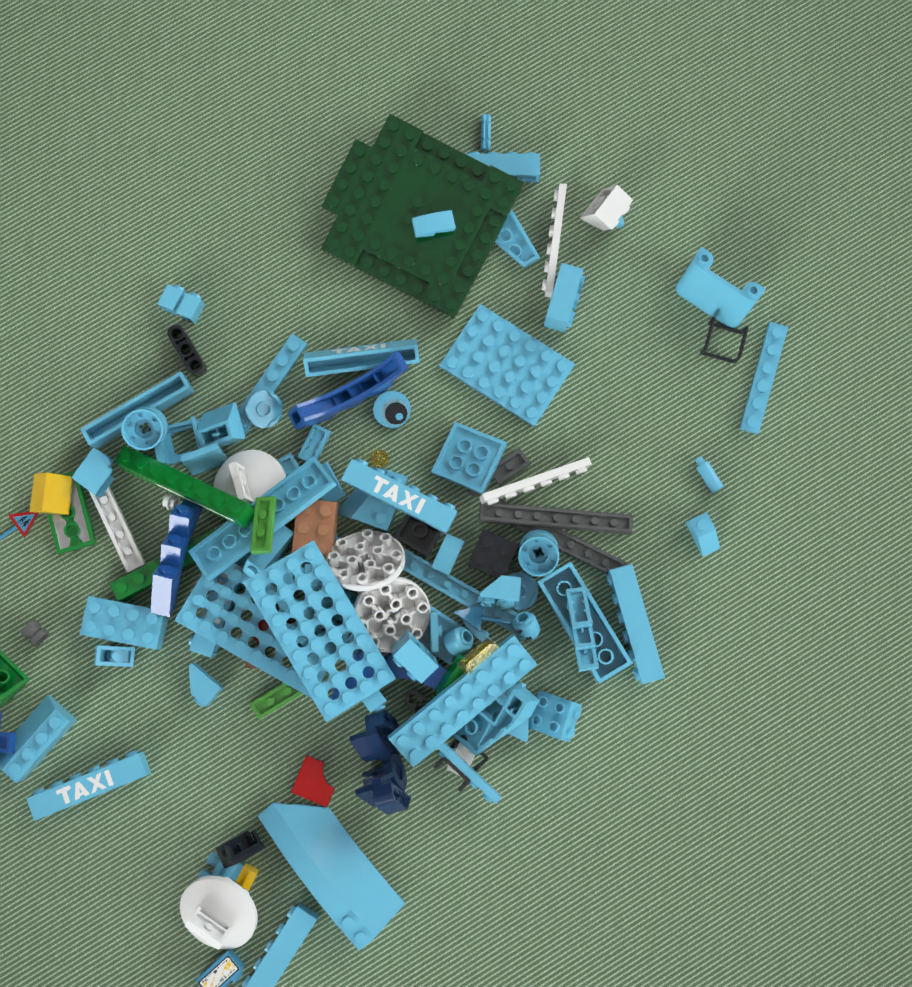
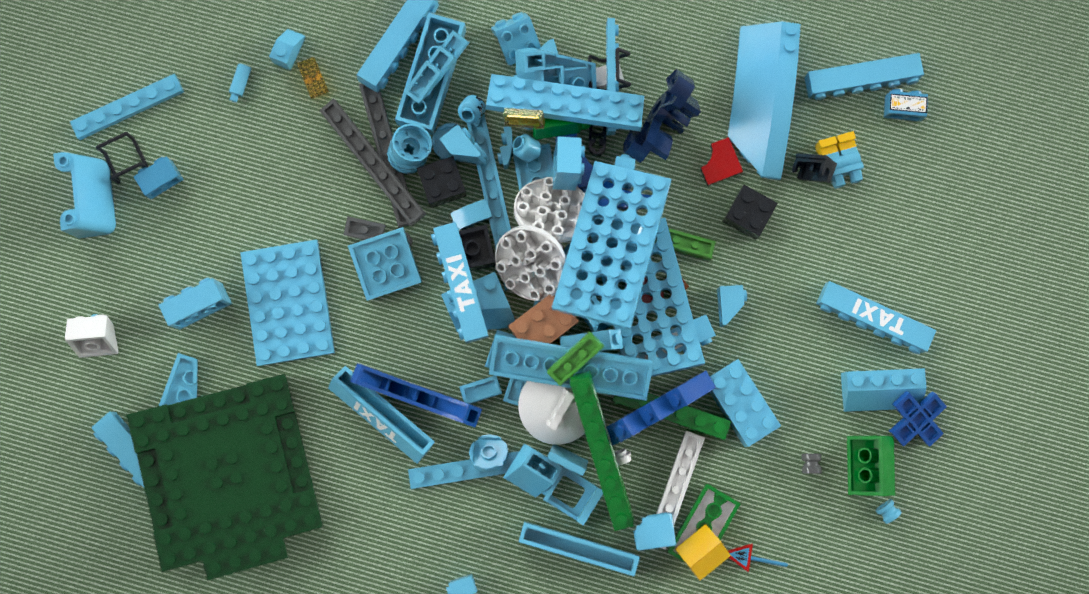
camera: 140 degrees left, 0 degrees up
(114, 656) = (771, 386): medium azure slope -> none
(135, 433) = (590, 512): medium azure wheel -> none
(181, 344) = (492, 565): black beam -> none
(218, 912) = (869, 141): white bracket -> none
(254, 766) = (749, 212): none -> black brick
(379, 458) = (446, 330): clear yellow plate -> none
(392, 409) = (400, 357): tile -> none
(433, 223) = (223, 452): medium azure slope -> none
(434, 632) = (535, 171): medium azure plate -> none
(474, 617) = (499, 153): dark azure piece -> none
(485, 132) = (110, 490): medium azure axle -> none
(528, 484) = (364, 201): white plate -> none
(553, 247) = (159, 350): white plate -> none
(664, 533) = (312, 77): none -> clear yellow tile
(686, 353) = (158, 177): none -> dark azure brick

